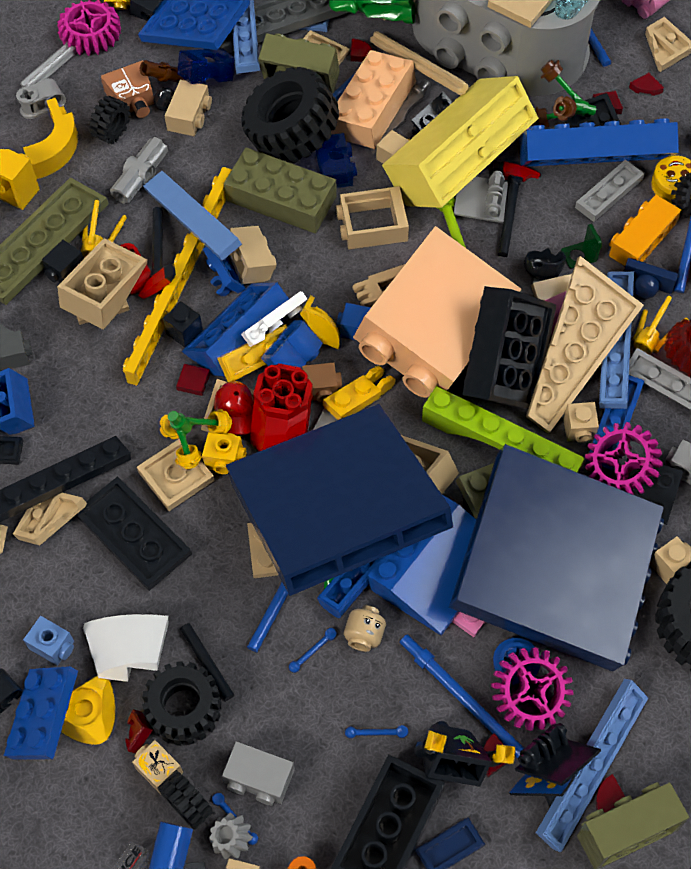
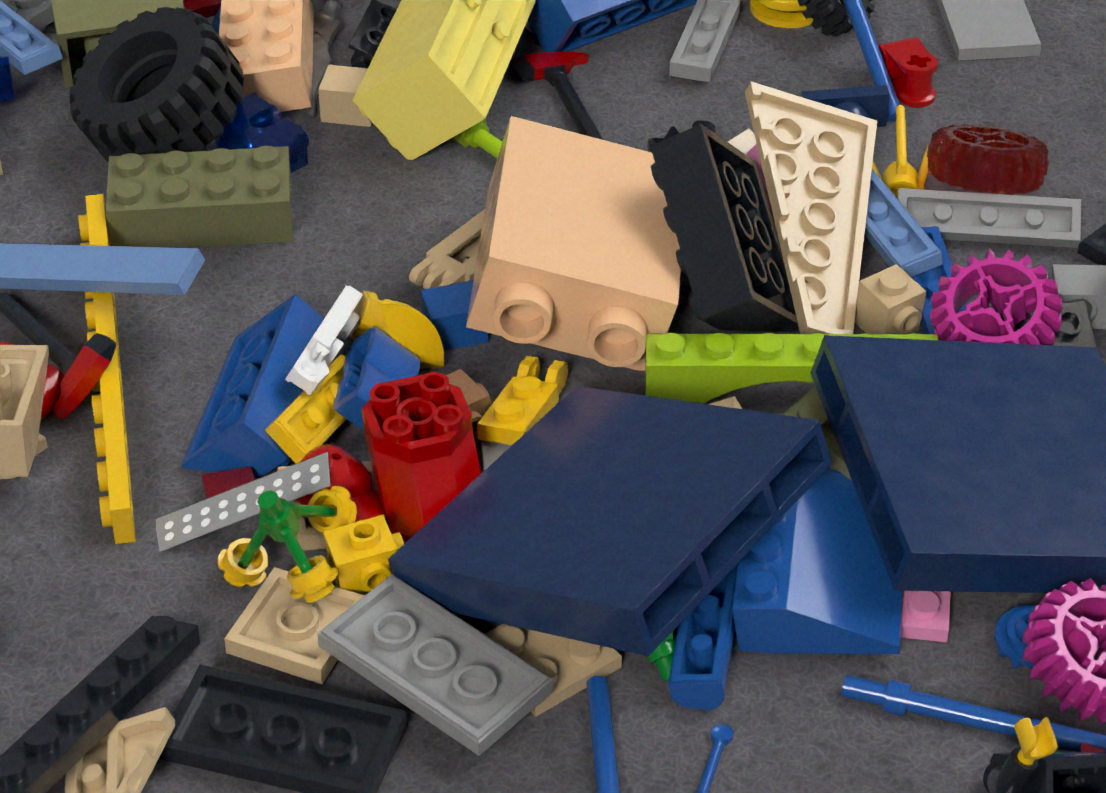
camera: 30 degrees left, 20 degrees down
(183, 324) = (164, 420): black brick -> none
(188, 393) = (241, 502): none -> light grey sticker
(218, 531) = (435, 664): none -> light grey tile
(226, 272) = (189, 334): blue plate -> none
(253, 258) = (220, 298): tan brick -> none
(364, 628) = (776, 693): tan head -> none
(372, 200) = (390, 149): tan window -> none
(483, 198) = (532, 99): light grey hinge -> none
(590, 247) = (730, 103): dark green bracket -> none
(644, 231) = (795, 52): light orange brick -> none

